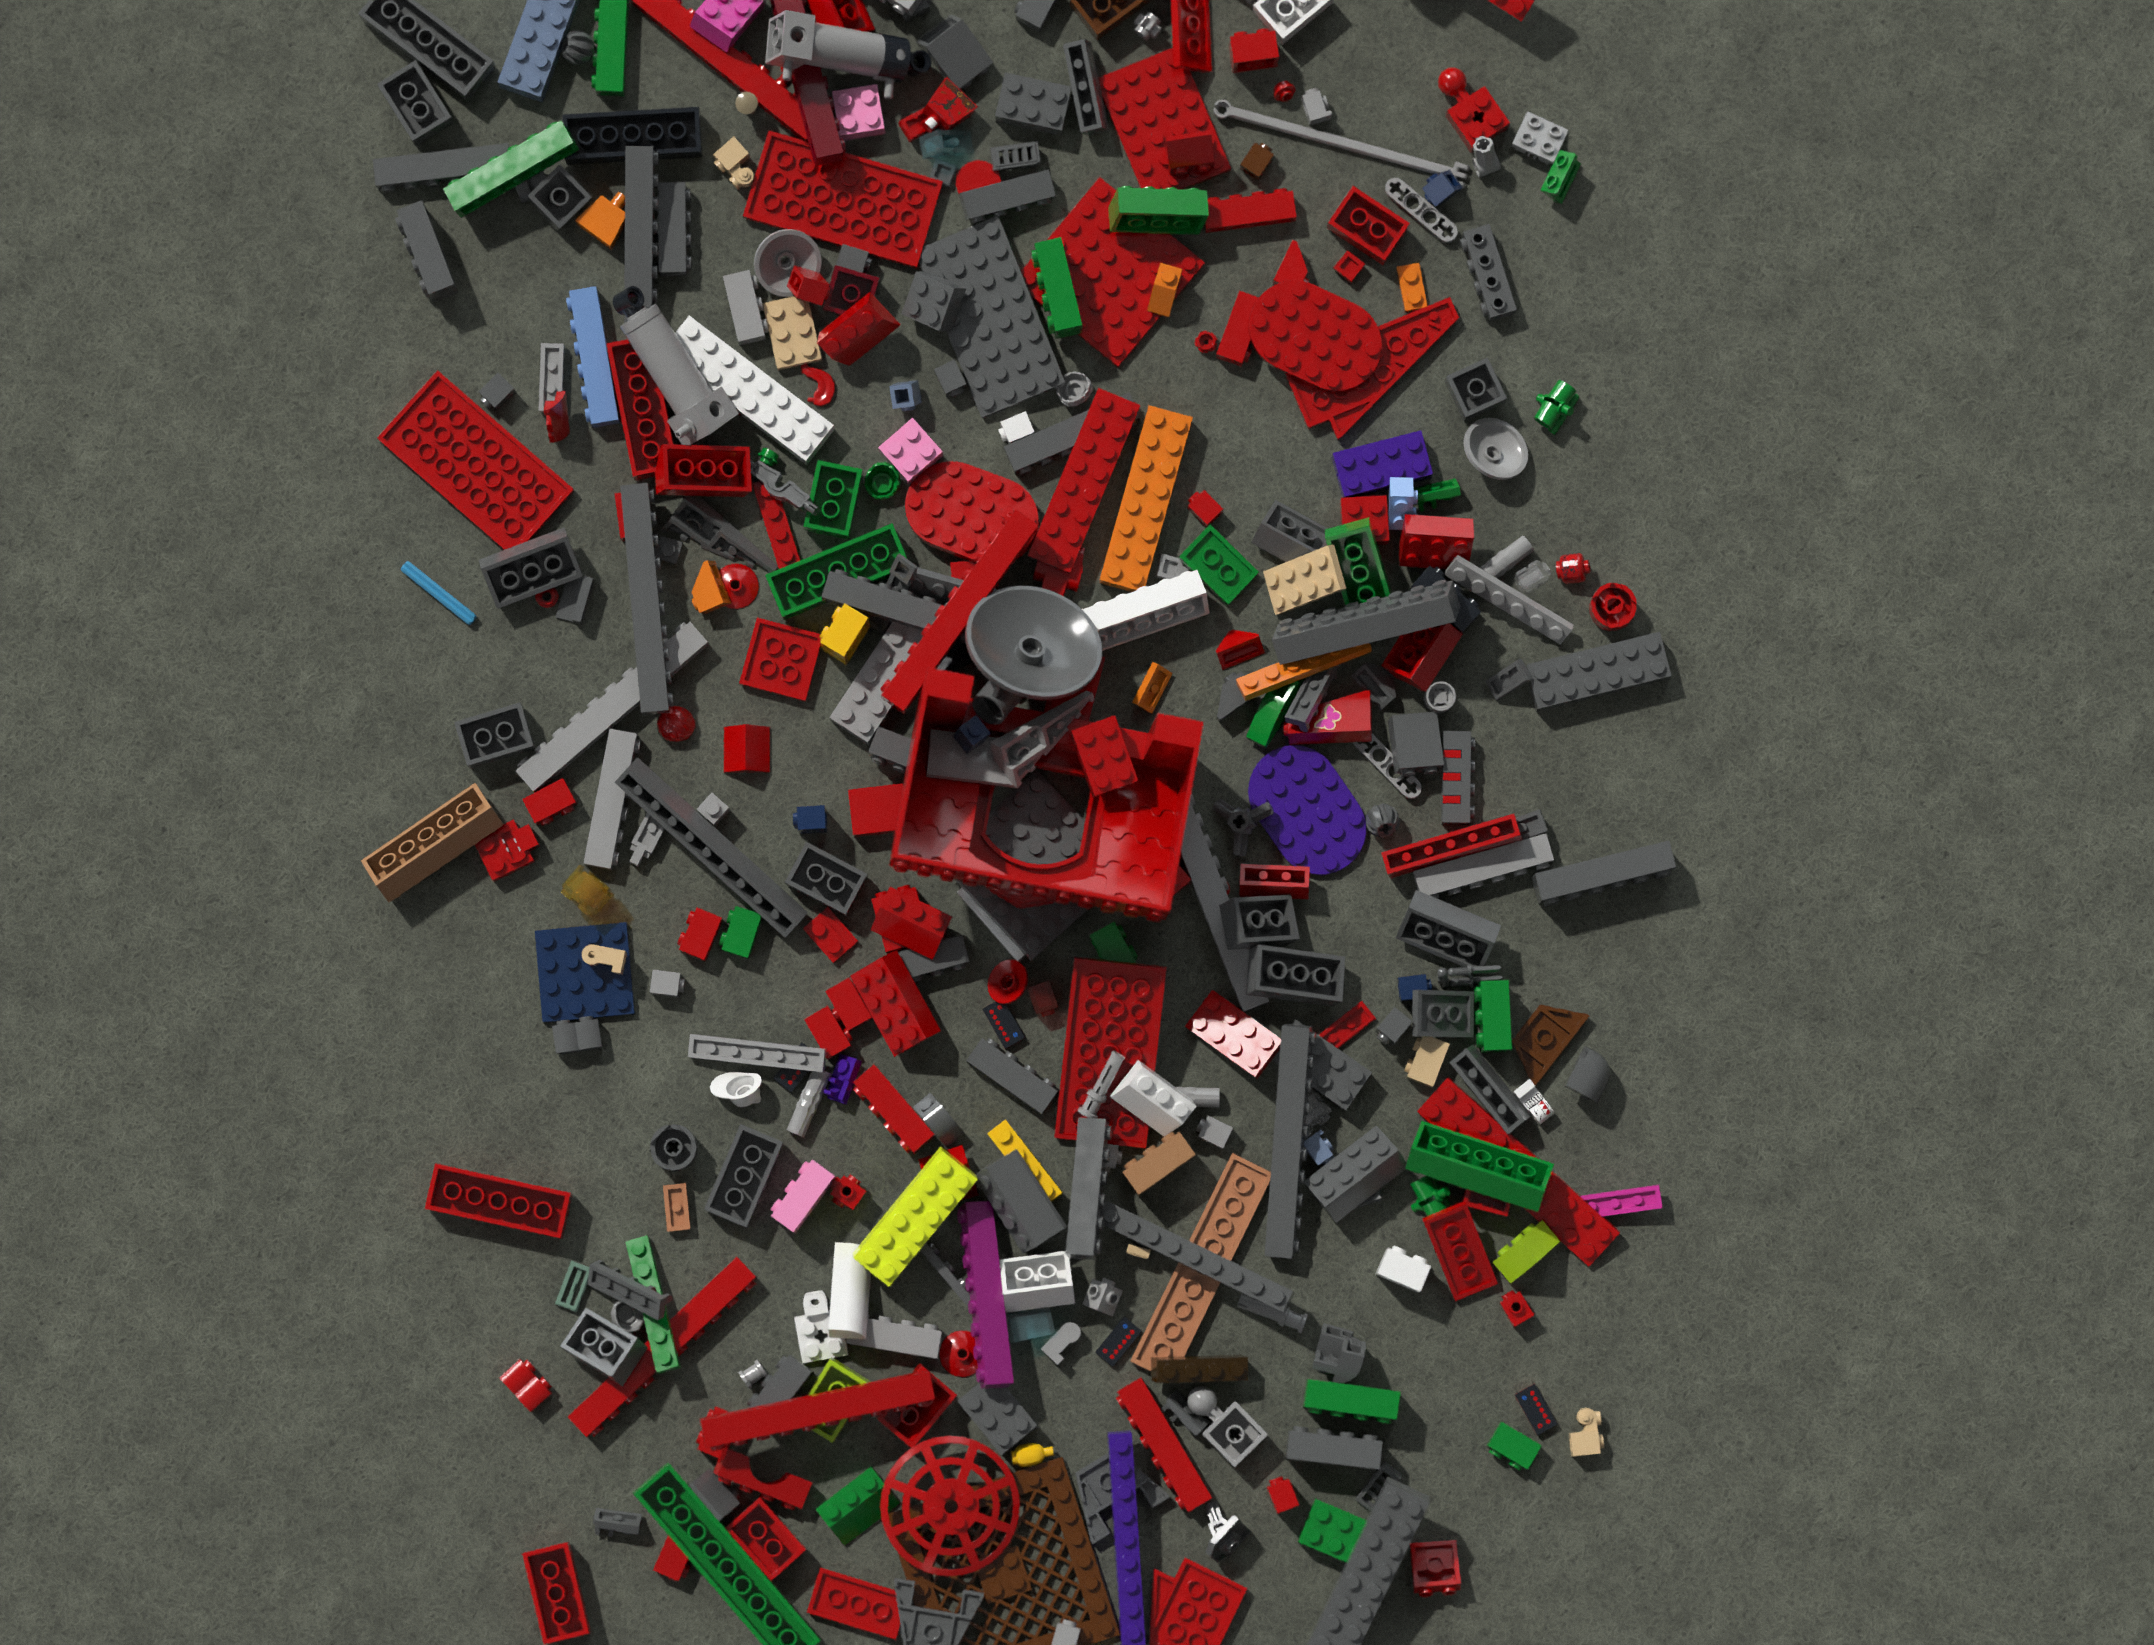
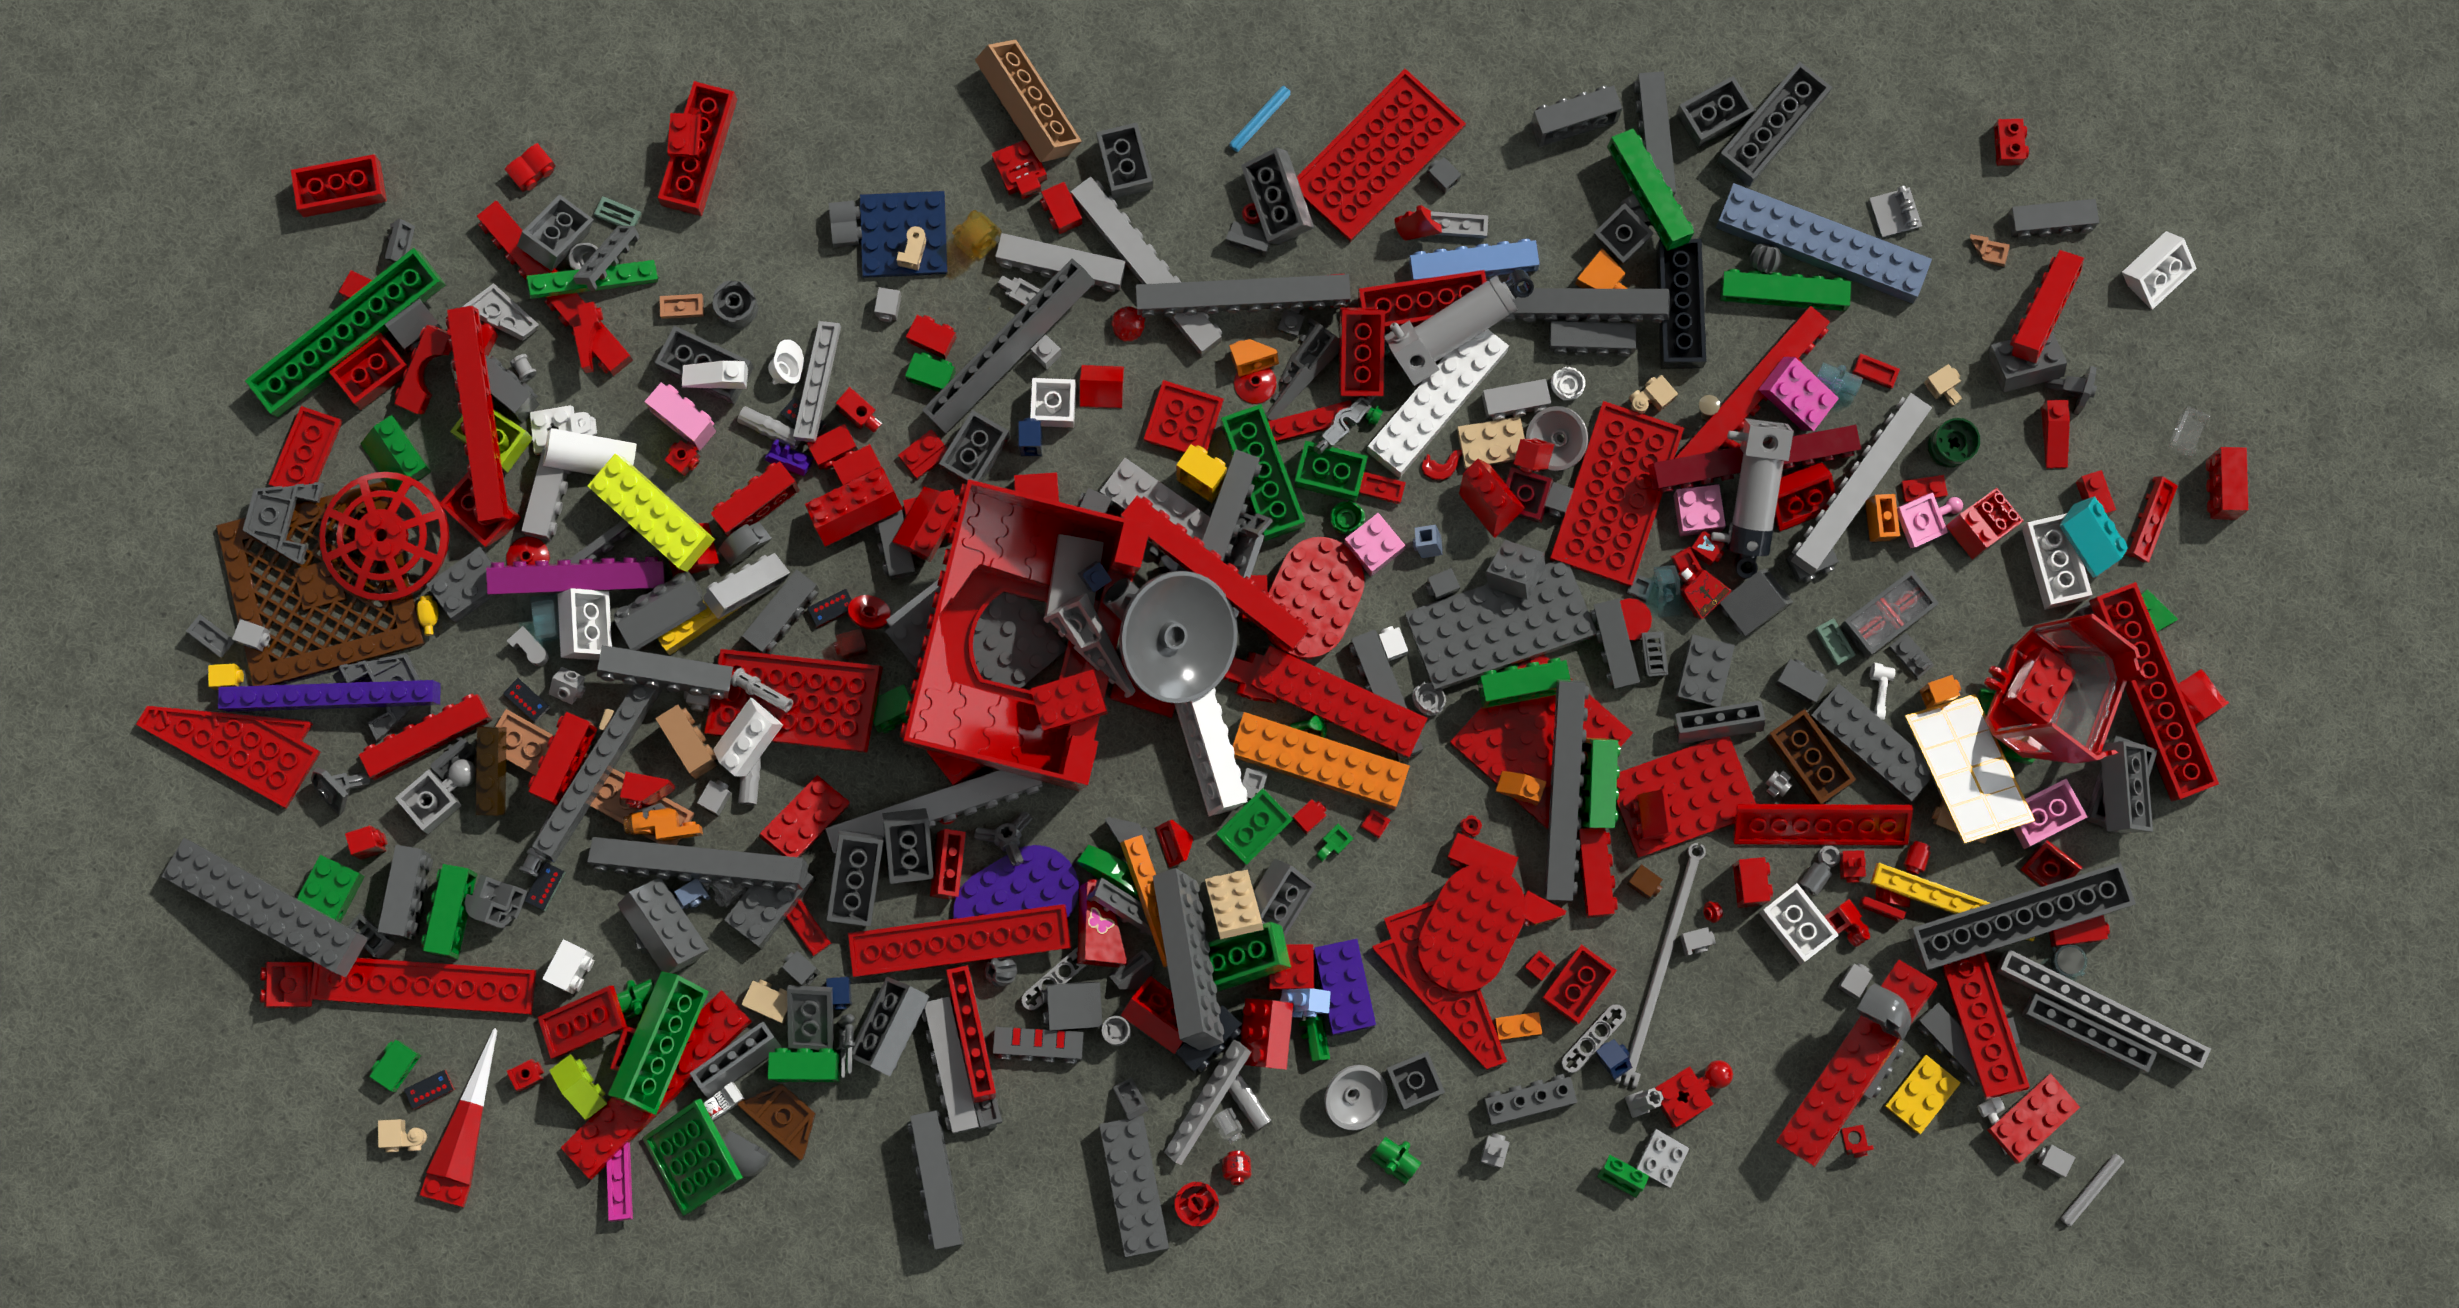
camera: 90 degrees right, 5 degrees down
(488, 1212) = (684, 135): none -> red plate
(693, 1402) = (503, 313): none -> light grey wing
(700, 1300) = (590, 321): none -> red slope
(725, 253) = (1568, 383): none -> white hair
(759, 1159) = (716, 375): none -> white slope
(770, 798) = (1053, 402): none -> white brick
(781, 1013) = (851, 403): none -> red torso
(847, 444) = (1382, 488): none -> red plate
(900, 104) = (1707, 549): none -> red brick
(988, 1110) = (745, 585): none -> light grey brick
(1108, 504) = (1315, 723): none -> green plant
(1152, 687) = (1140, 759): orange plate -> none
(1168, 242) = (1564, 789): none -> dark grey brick
(1186, 1290) = (562, 759): none -> red brick
(1207, 440) = (1375, 823): none -> red tile
(1214, 1202) = (644, 790): none -> red slope
(1228, 480) = (1335, 841): none -> green plate
(1244, 1184) = (662, 822): none -> orange plate
(1316, 1305) = (545, 886): none -> black tile
(1354, 864) = (959, 940): none -> red plate
(1428, 1415) = (428, 986): none -> red plate
(1541, 306) = (1494, 1151): none -> light grey brick
(1594, 1124) = (692, 1157): none -> green plate
(1608, 1376) = (453, 1163): none -> red plate

